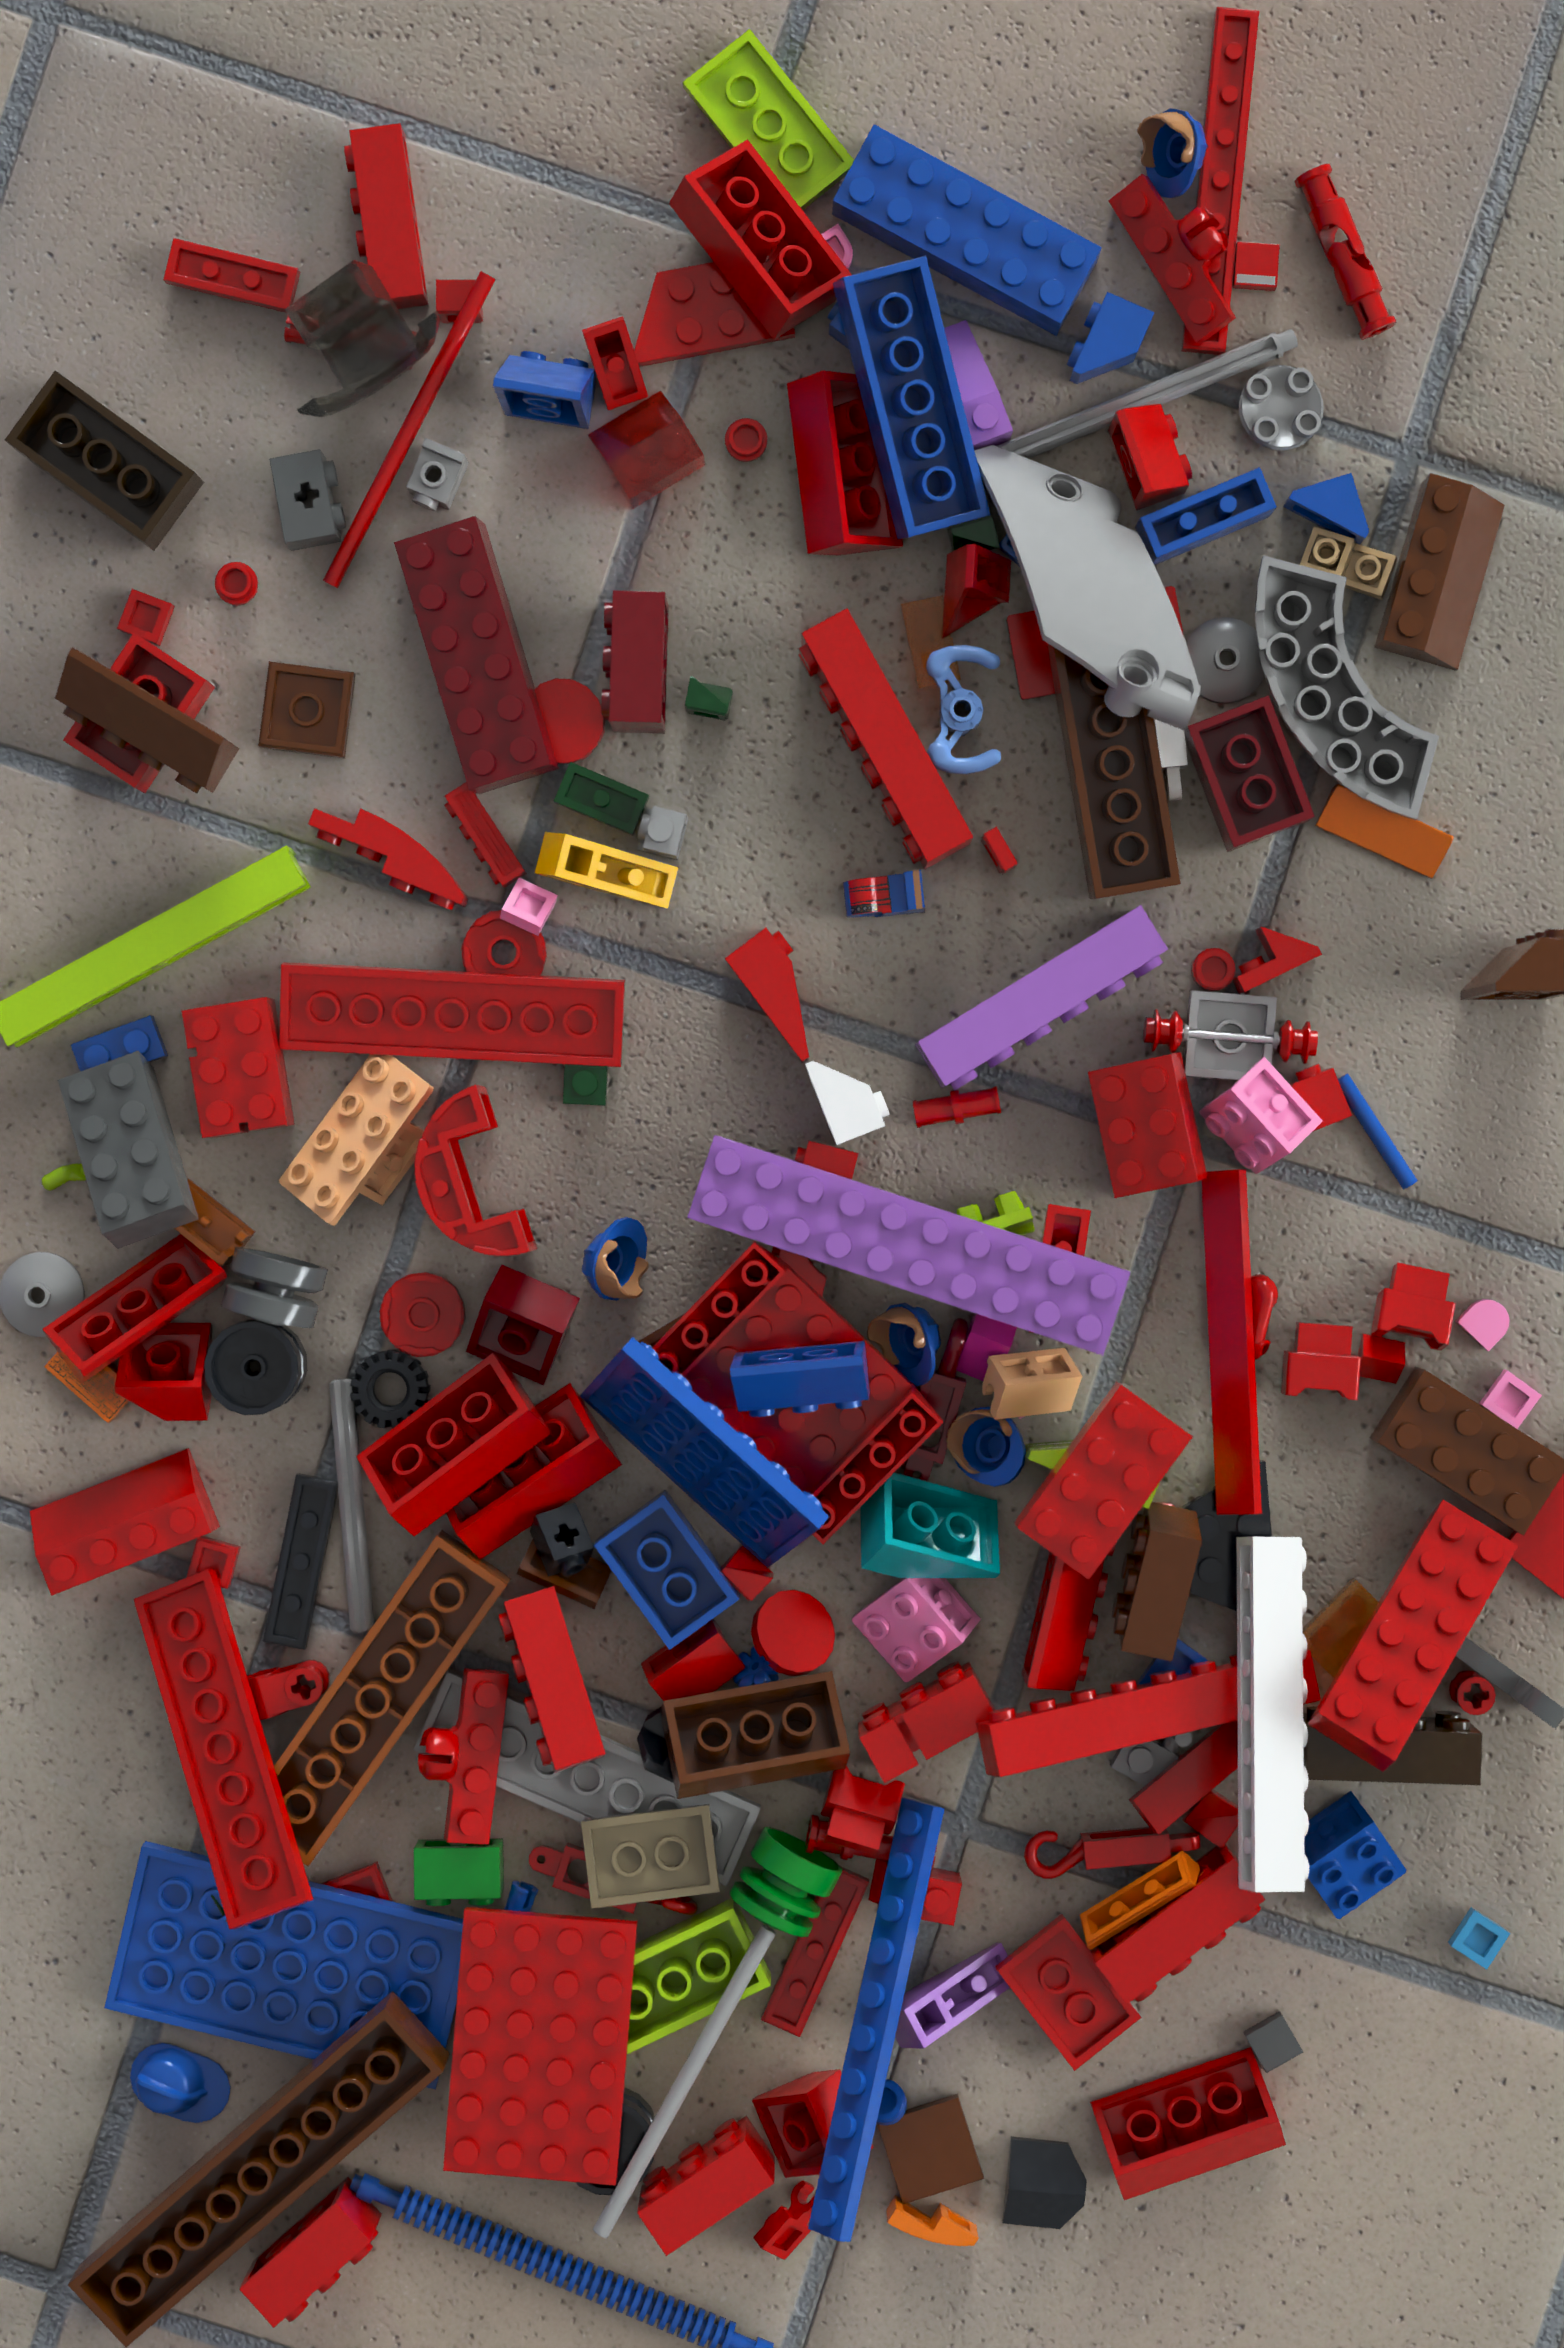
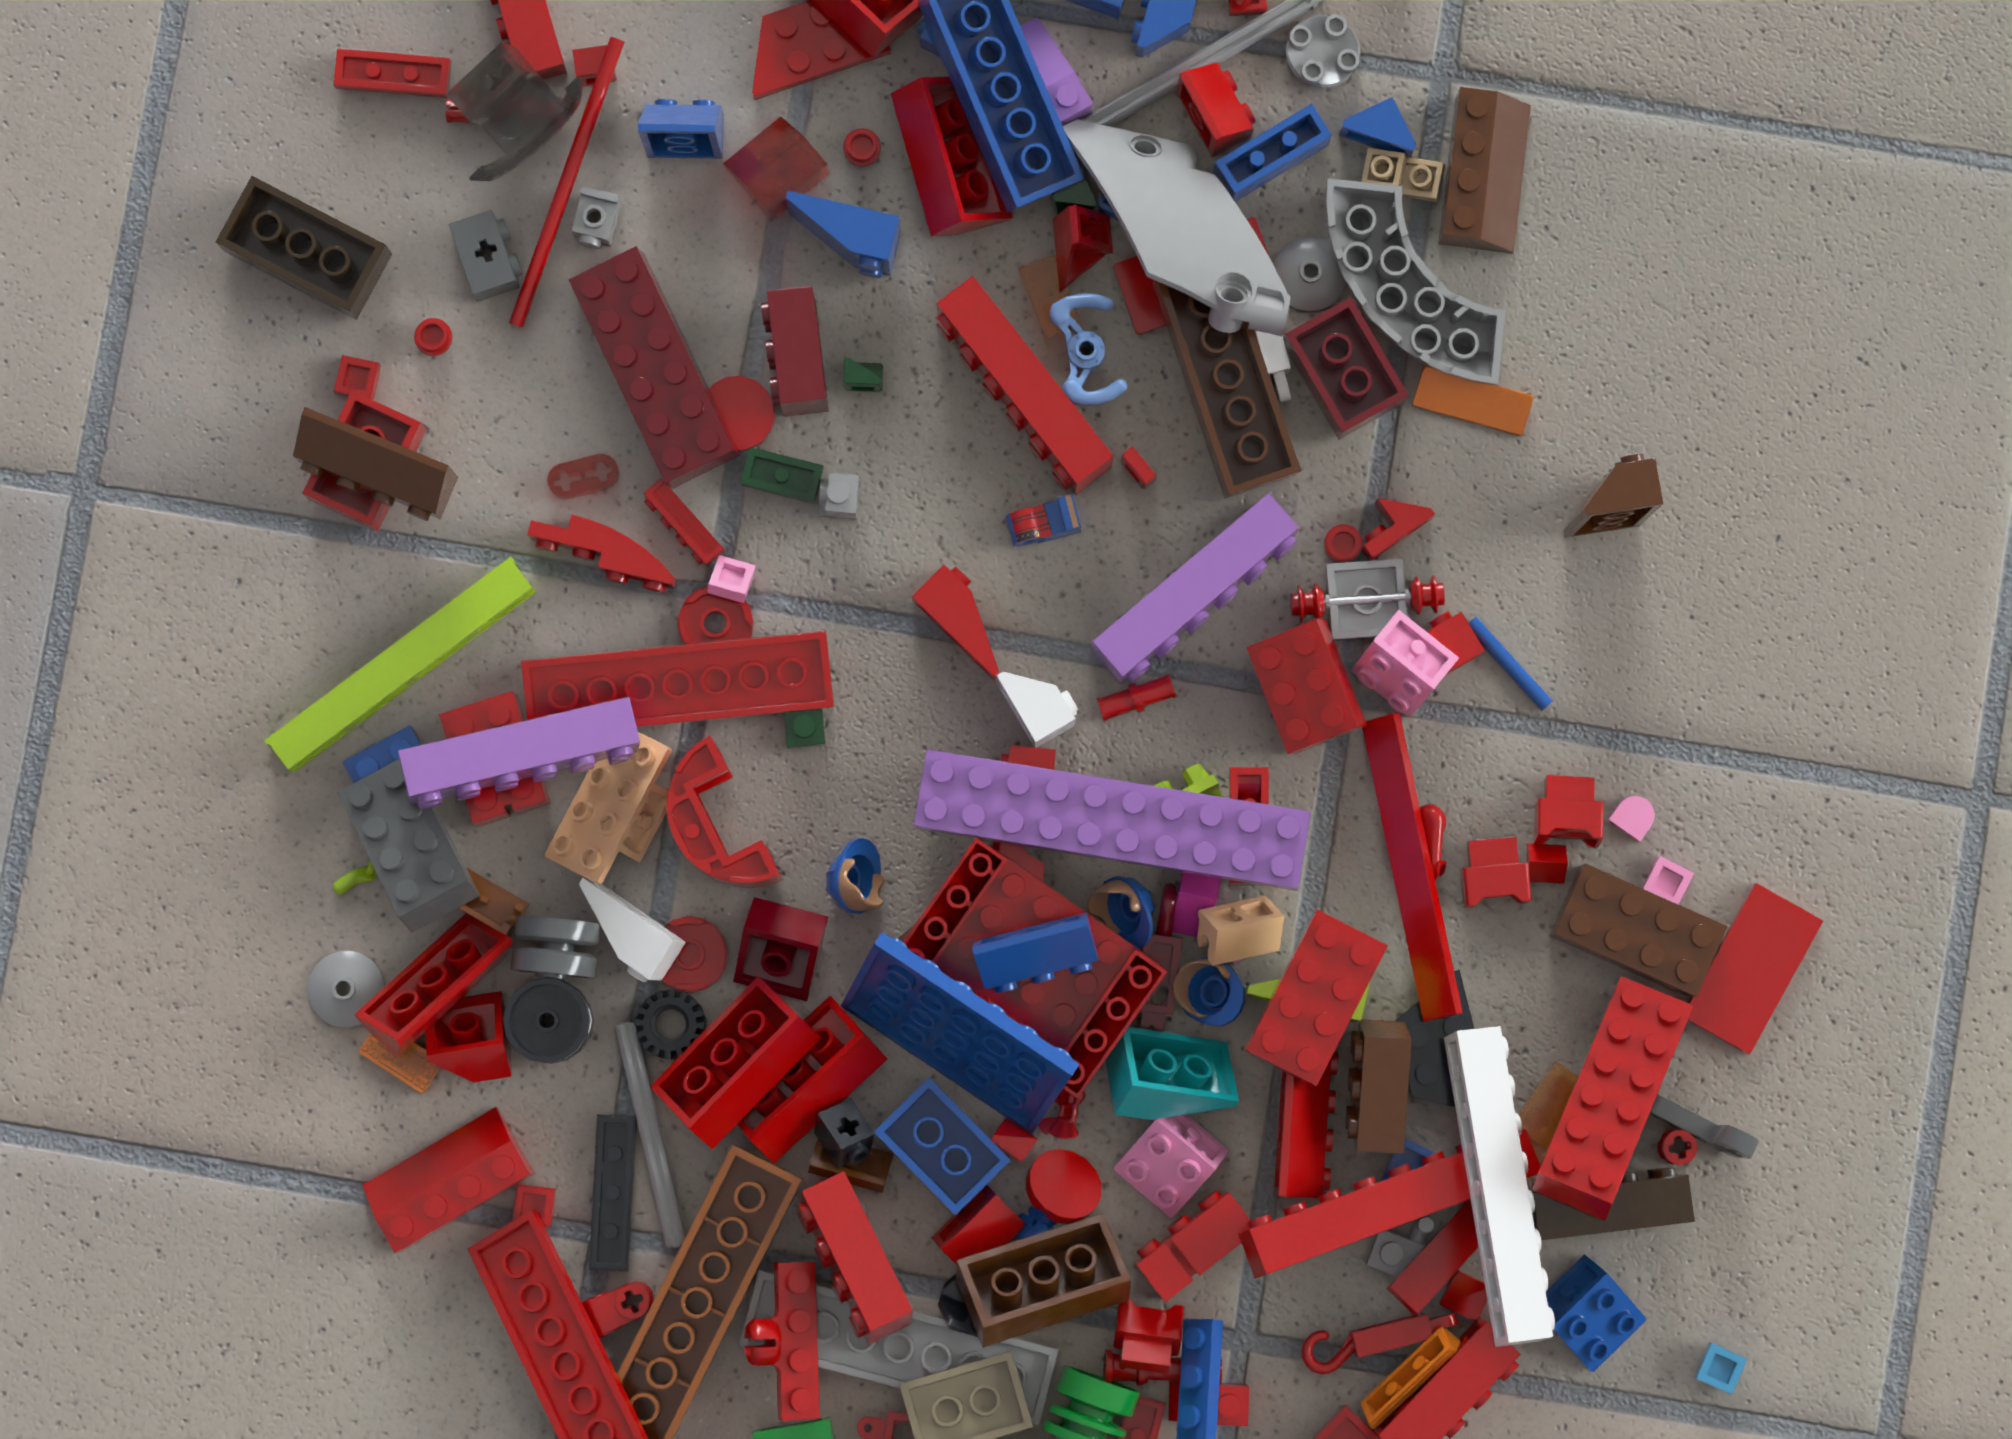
camera: 15 degrees left, 5 degrees down
(259, 1070) = (518, 752): none -> medium lavender brick
(306, 710) = (510, 437): reddish brown tile -> none
(363, 1287) = (635, 937): none -> white slope
(382, 776) = (585, 485): none -> clear red beam
(605, 869) = (794, 536): yellow slope -> none
(615, 363) = (738, 98): red slope -> none
(725, 539) = (857, 234): none -> blue slope
(804, 1565) = (1063, 1125): none -> red piece

